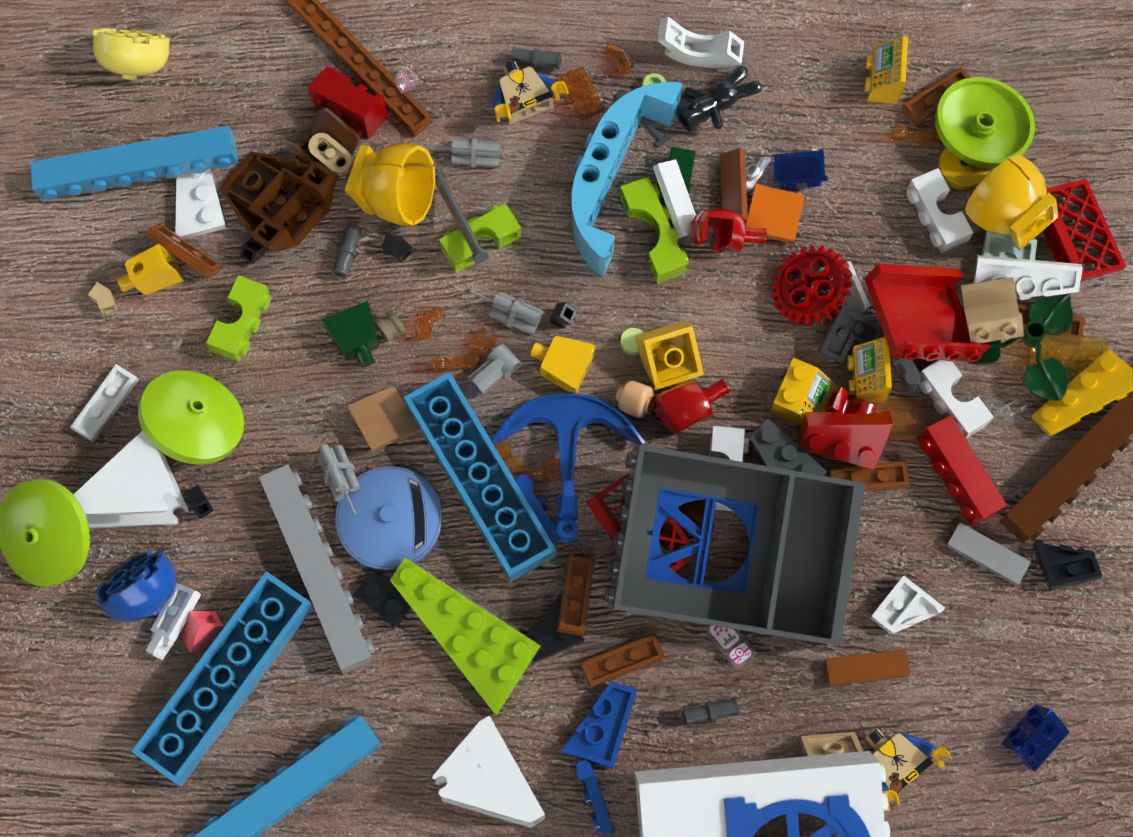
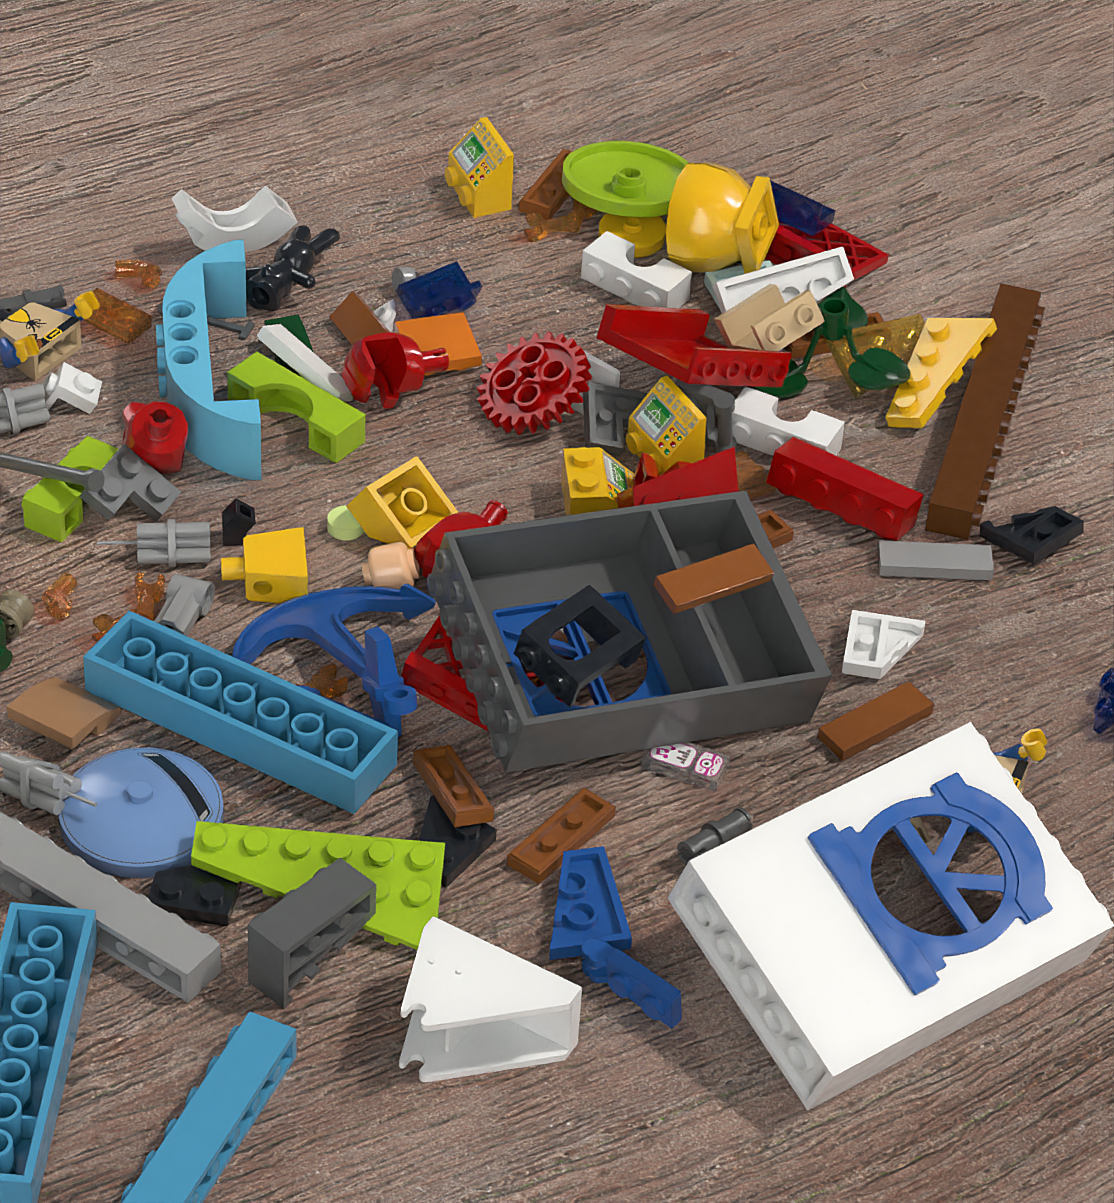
camera: 30 degrees left, 30 degrees down
(425, 672) = (305, 926): none -> dark grey wedge
(512, 249) = (135, 479): none -> dark grey plate
(523, 148) = (72, 387): none -> white bracket
(544, 226) = (156, 434): none -> red piece
(649, 557) = (617, 639): none -> black panel
(785, 144) = (402, 275): none -> light grey hinge
(800, 547) = (713, 578): none -> dark orange tile
(1080, 203) = (800, 210): none -> clear blue bracket

